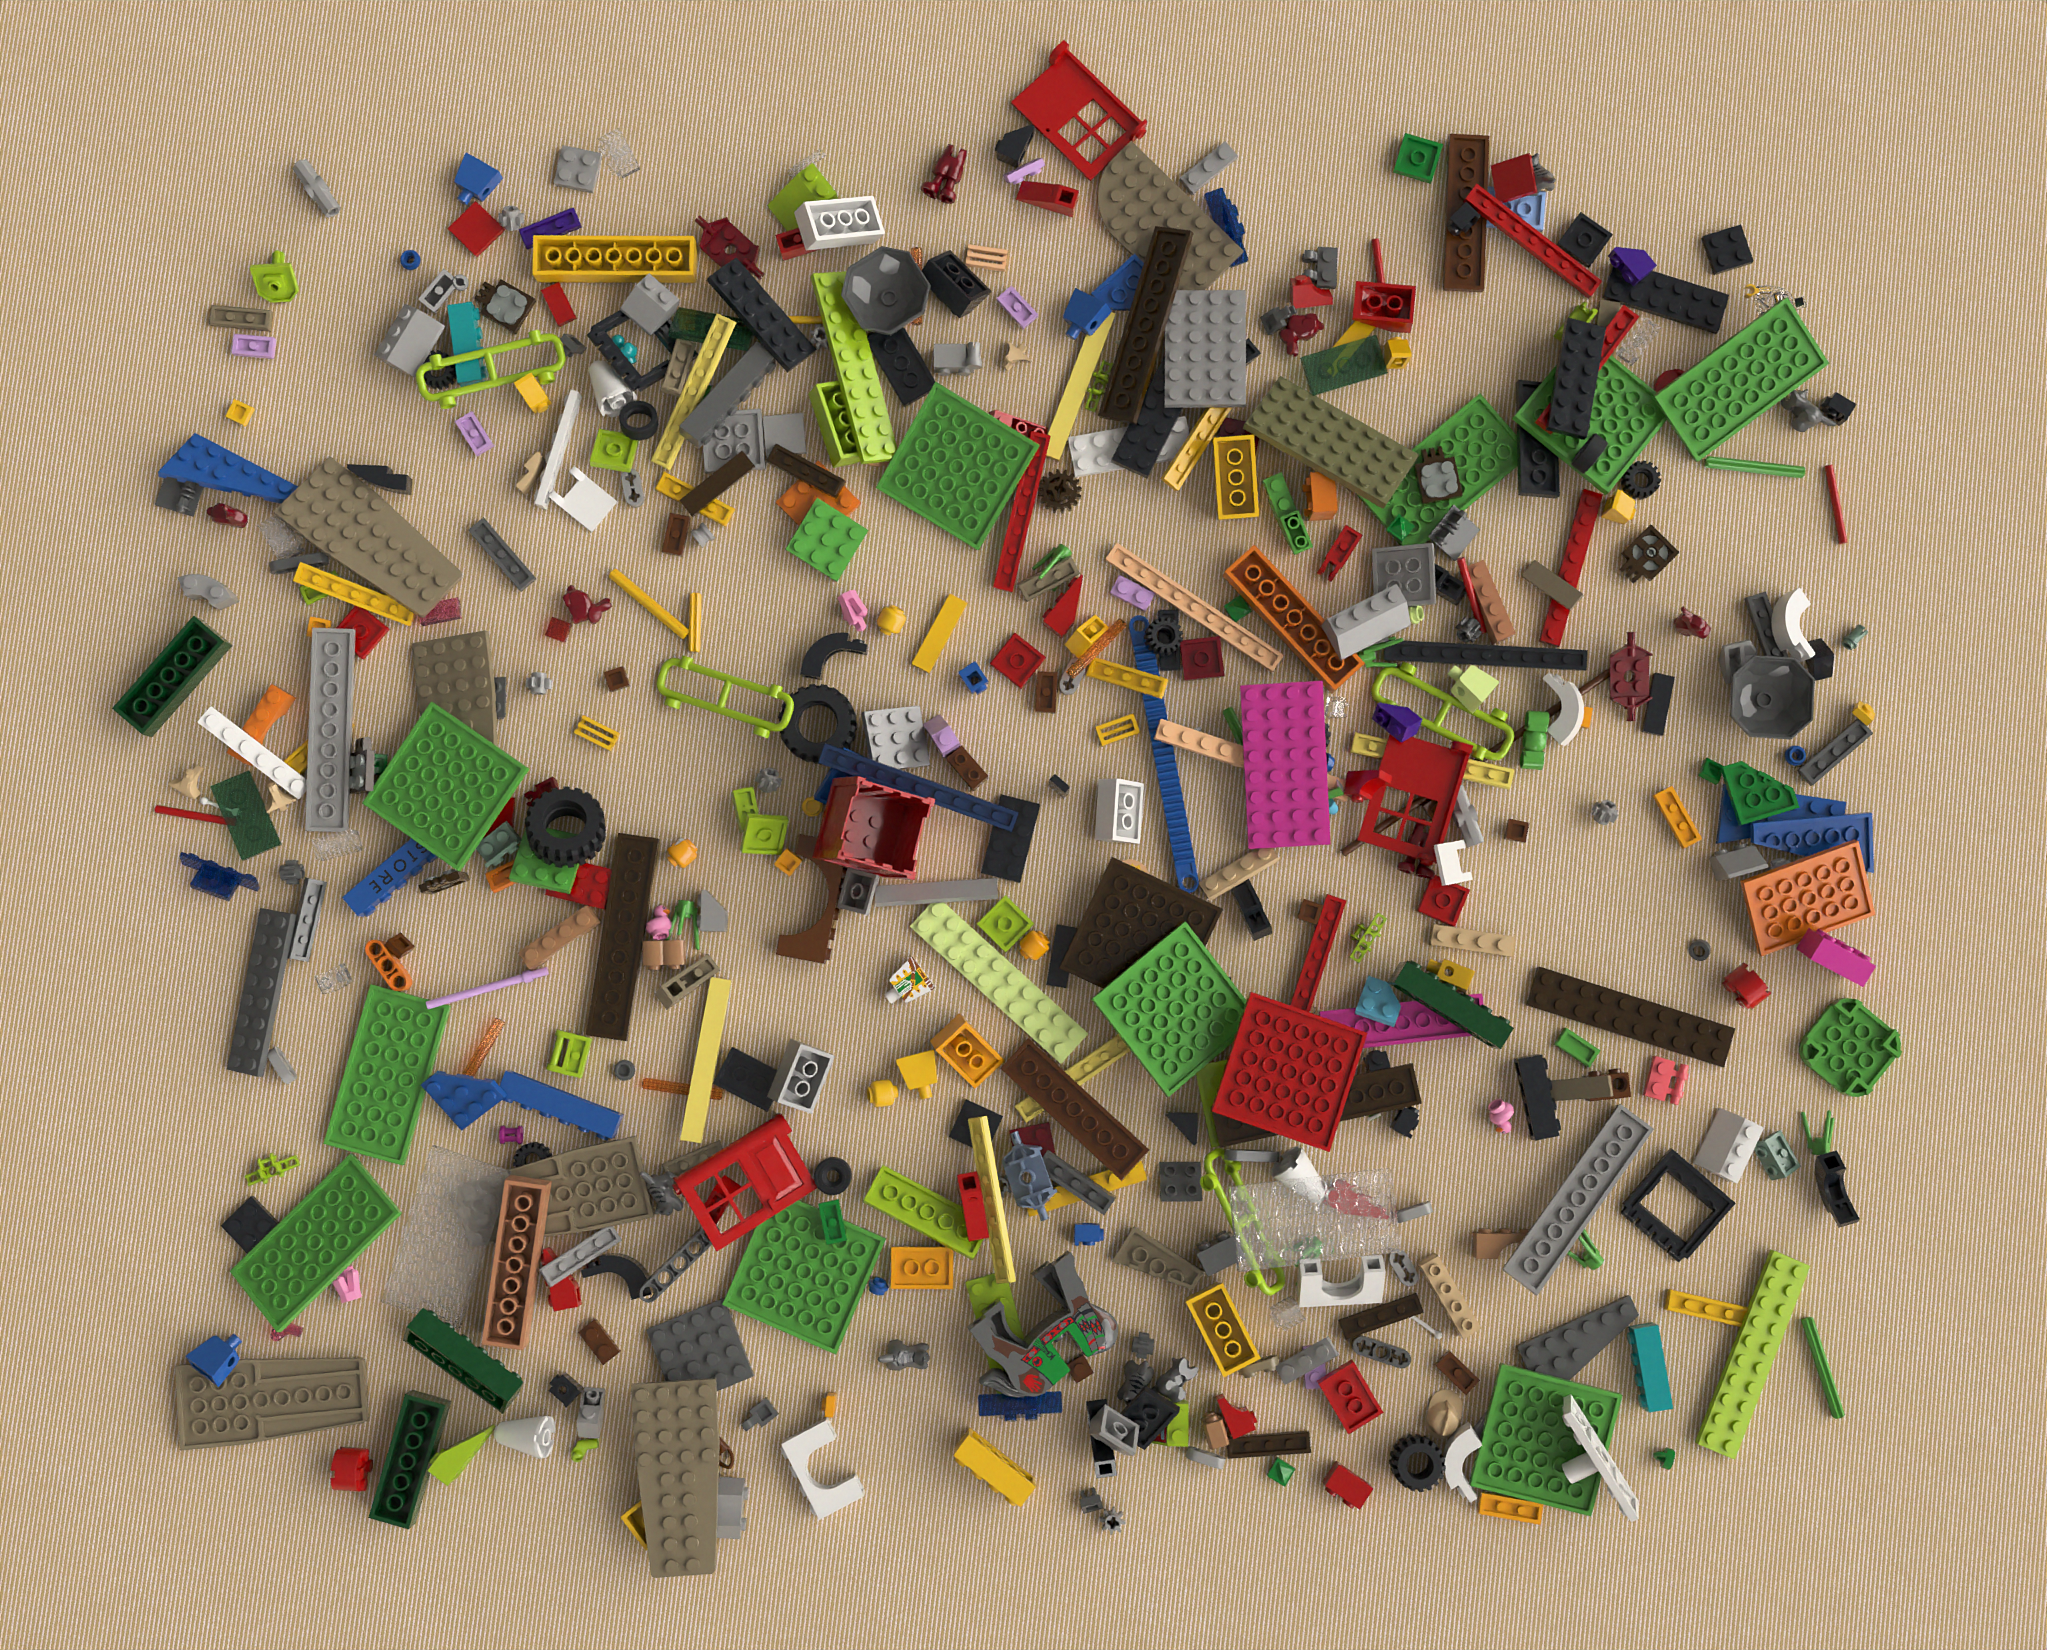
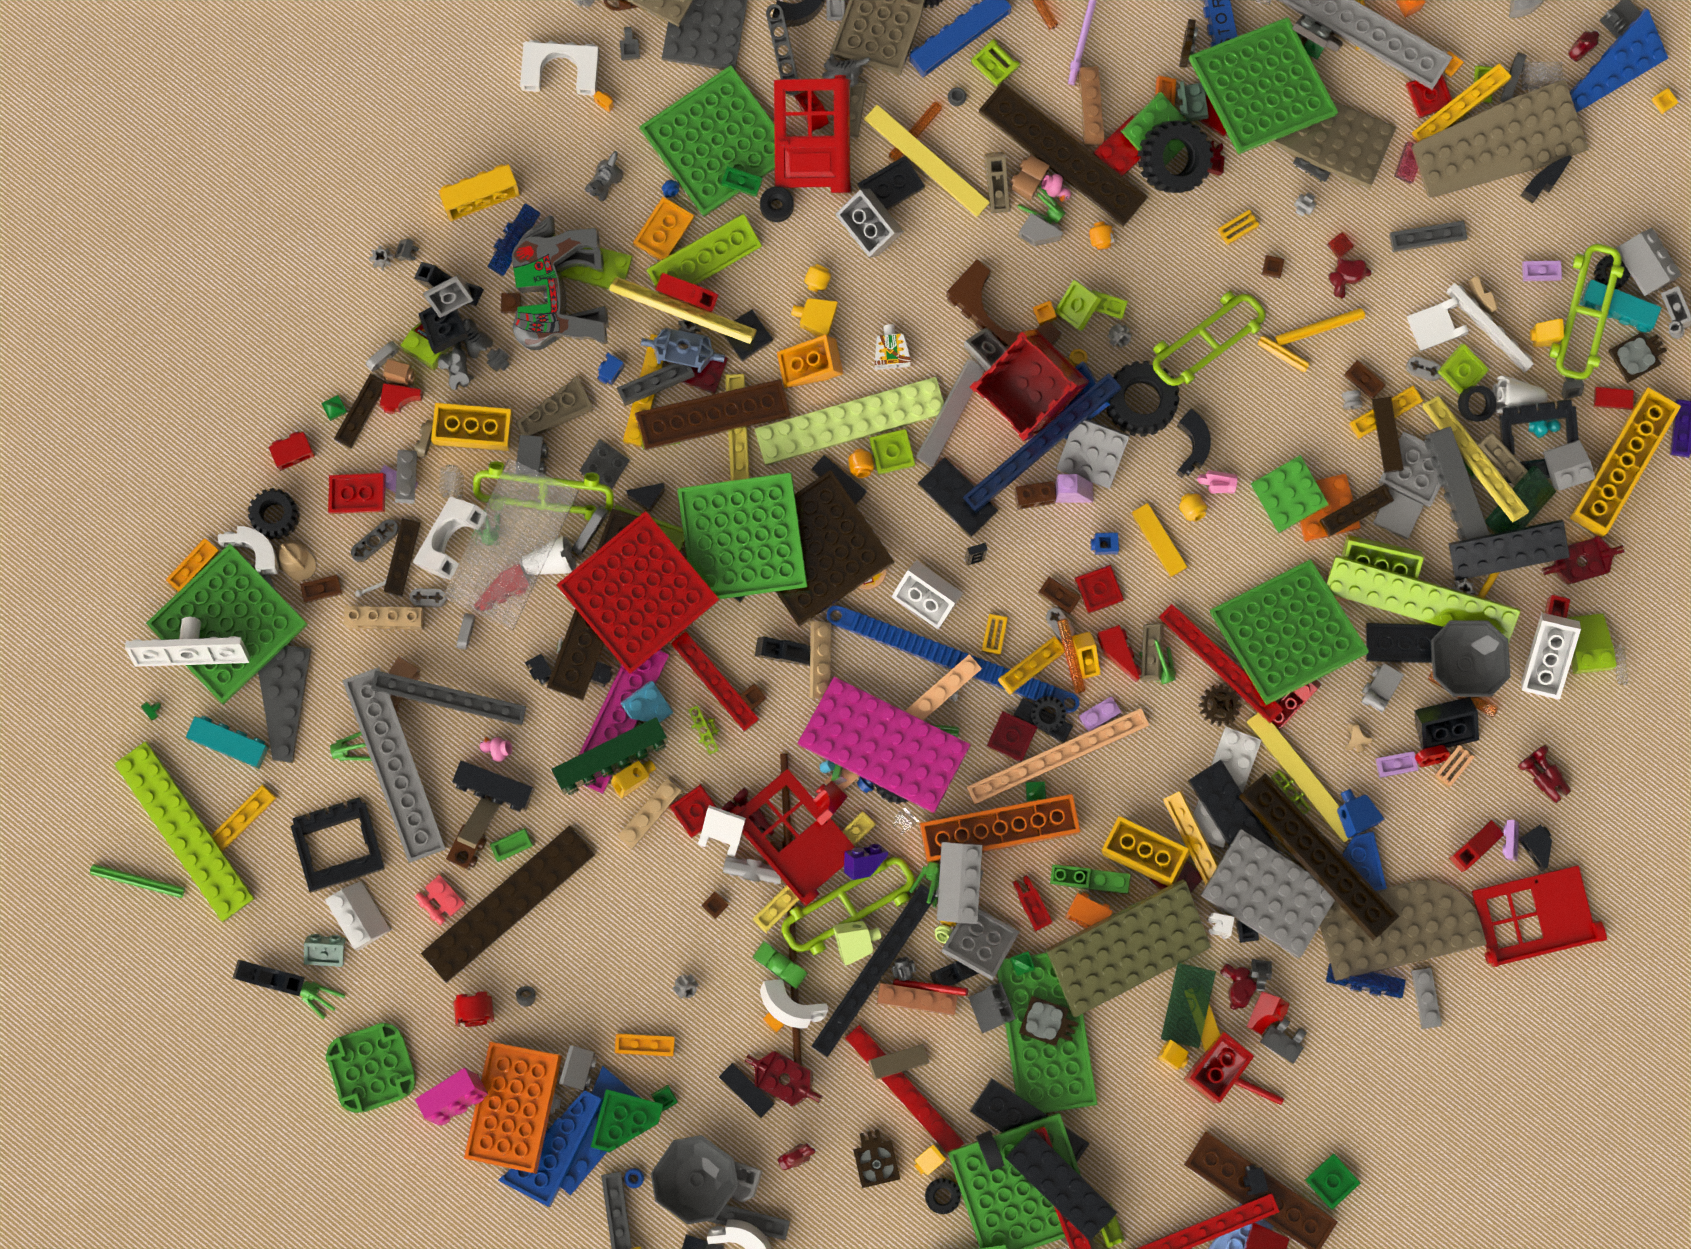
camera: 120 degrees right, 5 degrees down
(991, 279) = (1432, 756): none -> red beam
(1256, 374) = (1223, 925): none -> white hinge
(1488, 1188) = (448, 698): none -> dark grey plate

